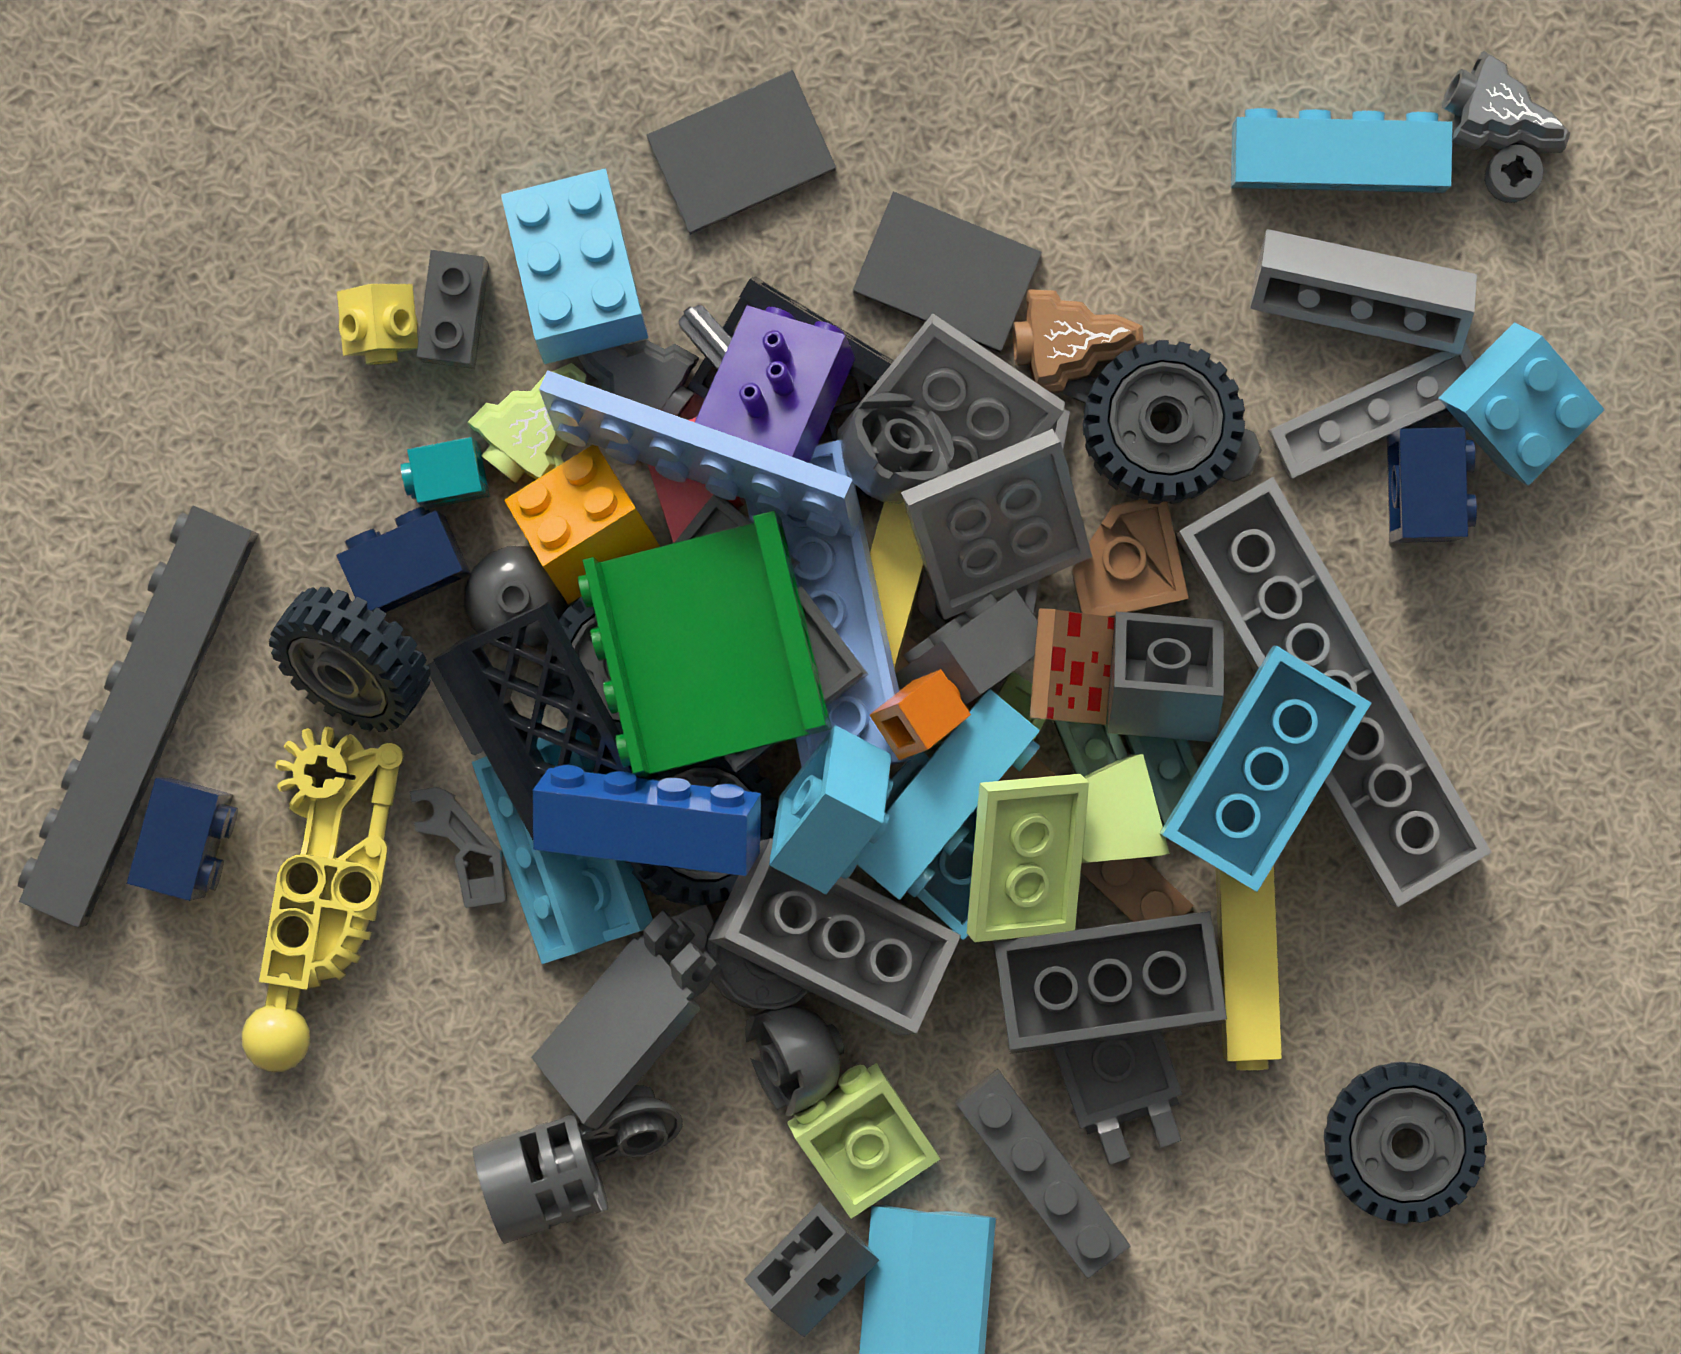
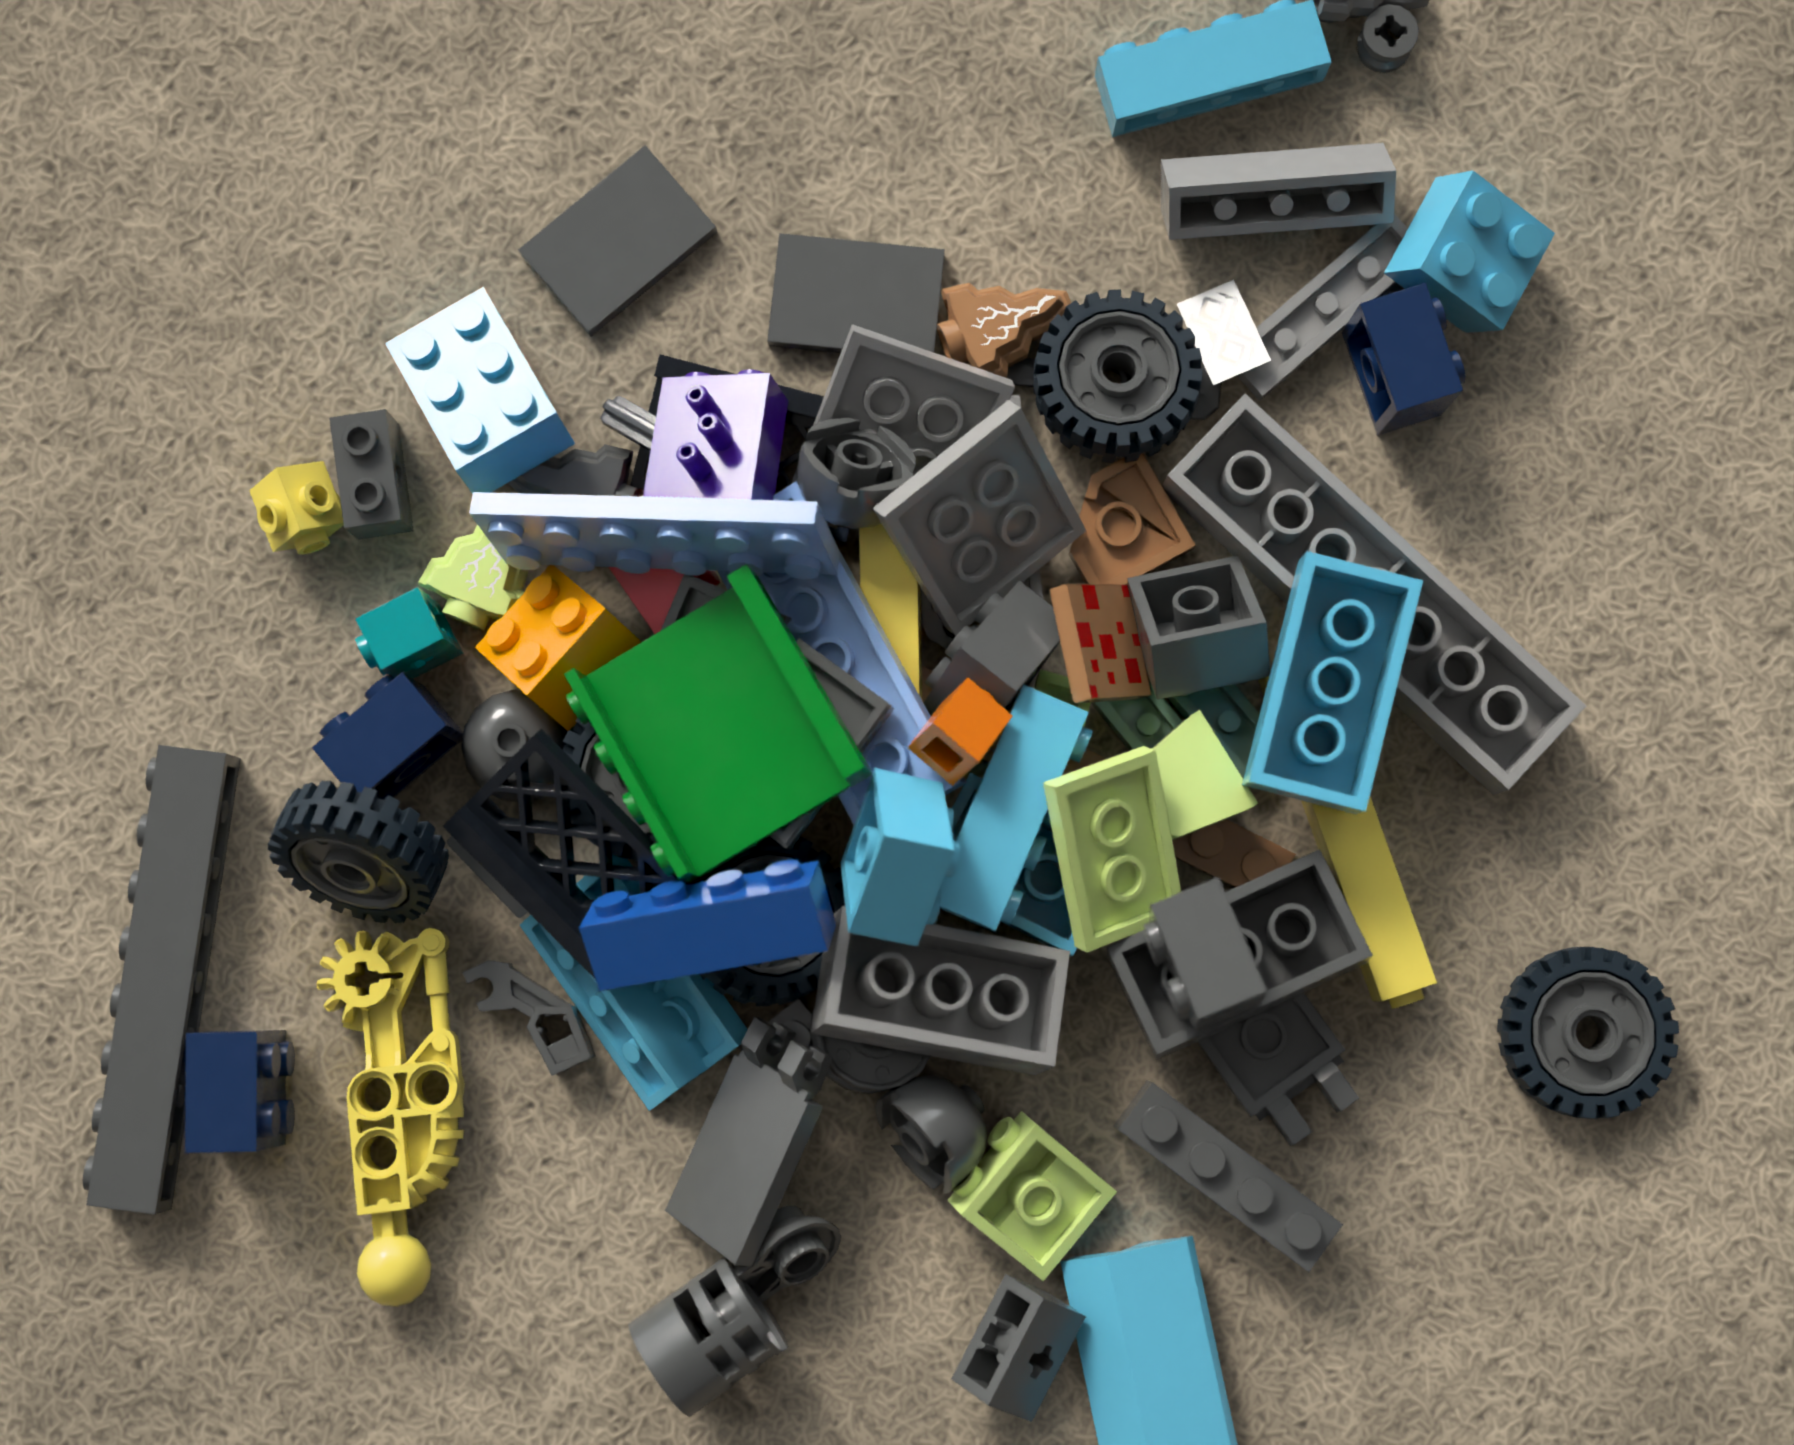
camera: 10 degrees left, 5 degrees down
(1075, 975) = (1204, 954): none -> dark grey brick
(1275, 407) = (1224, 332): none -> white sticker

